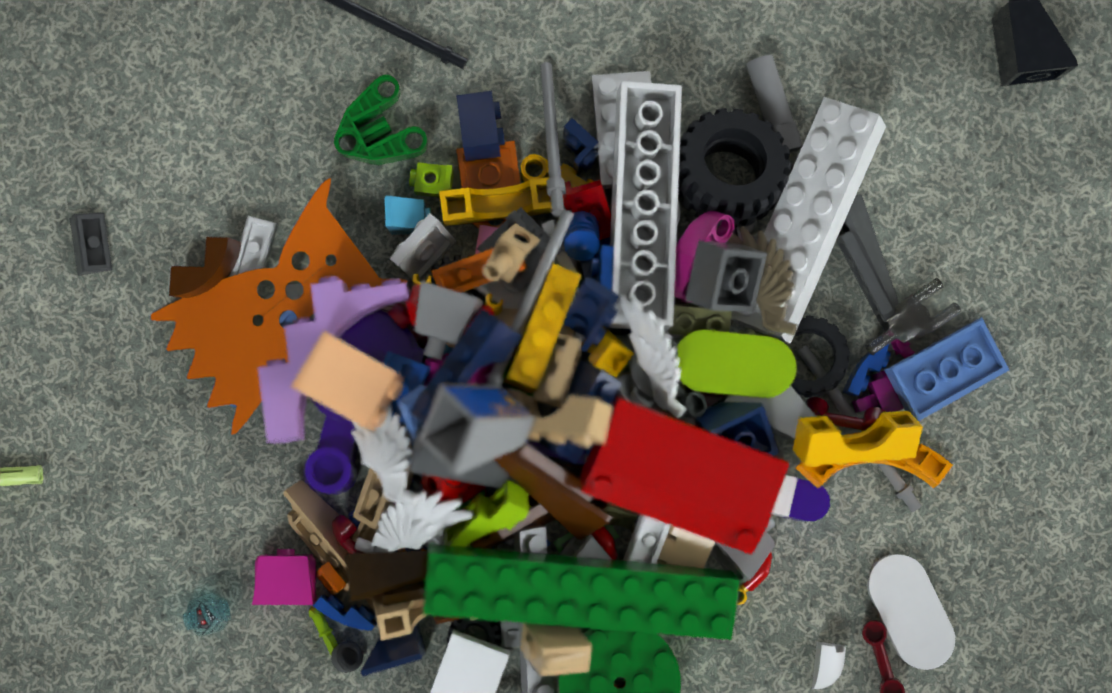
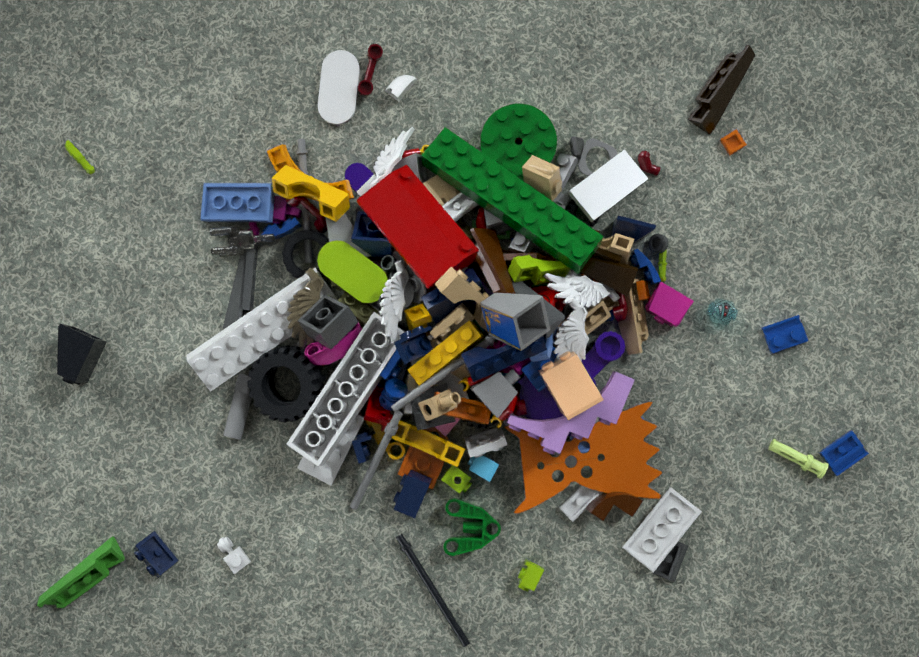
camera: 140 degrees left, 0 degrees up
(104, 635) = (784, 334): none -> blue plate
(123, 274) = (661, 529): none -> white plate
(262, 112) = (530, 576): none -> lime brick
(781, 555) = (391, 156): none -> white animal

